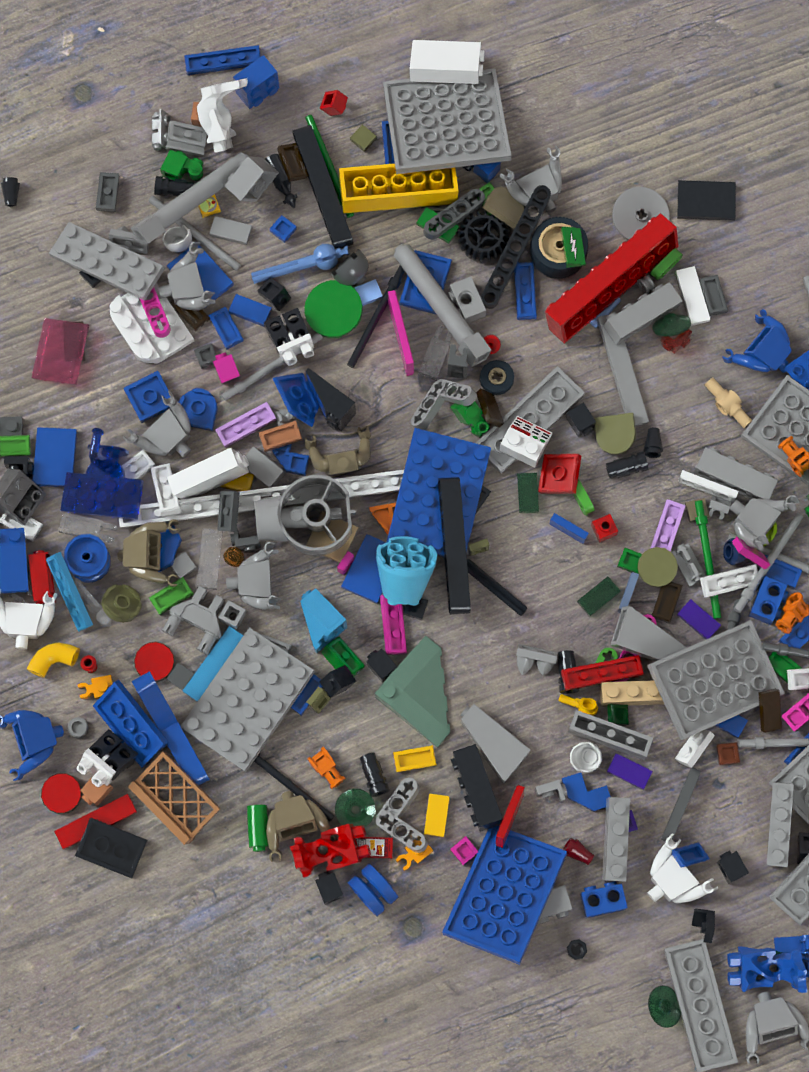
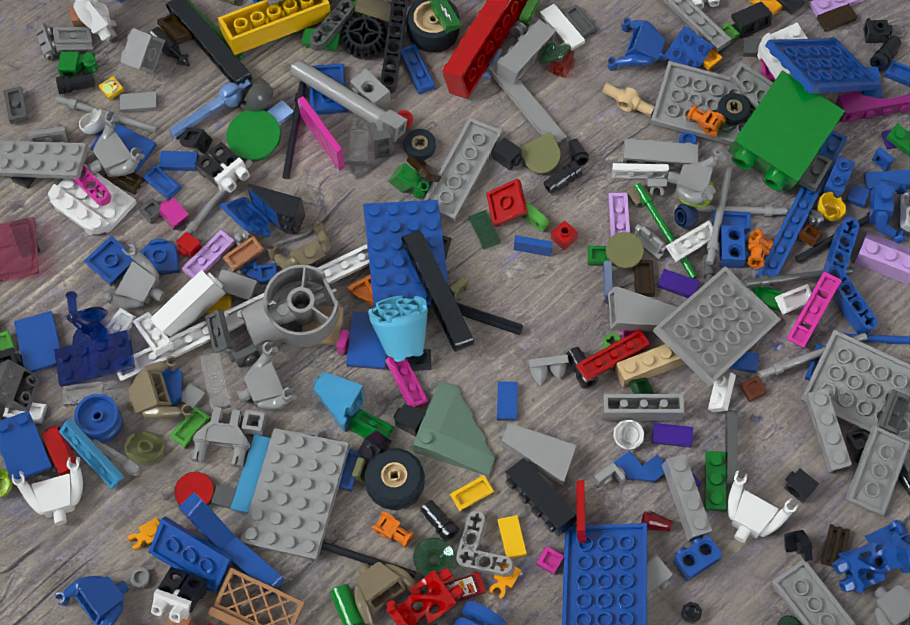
camera: 20 degrees left, 10 degrees down
(52, 654) = (92, 518): yellow cylinder -> none
(86, 660) = (132, 514): red pin -> none
(155, 224) = (88, 89): light grey brick -> none
(229, 408) = (188, 245): none -> red plate
(233, 556) = (237, 371): clear orange tile -> none
(283, 229) = (185, 85): blue plate -> none
(345, 719) = (394, 479): none -> black wheel
(438, 393) = (375, 170): light grey beam -> none
(482, 679) = (507, 401): none -> blue tile
(525, 441) = (466, 186): white slope -> none
(584, 705) = (610, 388): yellow plate -> none
(598, 596) = (582, 294): clear green tile -> none
(652, 831) = (715, 481): none -> green plate
(690, 855) = (759, 487): blue tile -> none
(750, 923) = (839, 531): none -> dark brown tile
(751, 553) = (701, 209): dark pink tile -> none
(770, 710) = (775, 336): dark brown tile -> none
(772, 467) = (687, 137): none -> blue tile

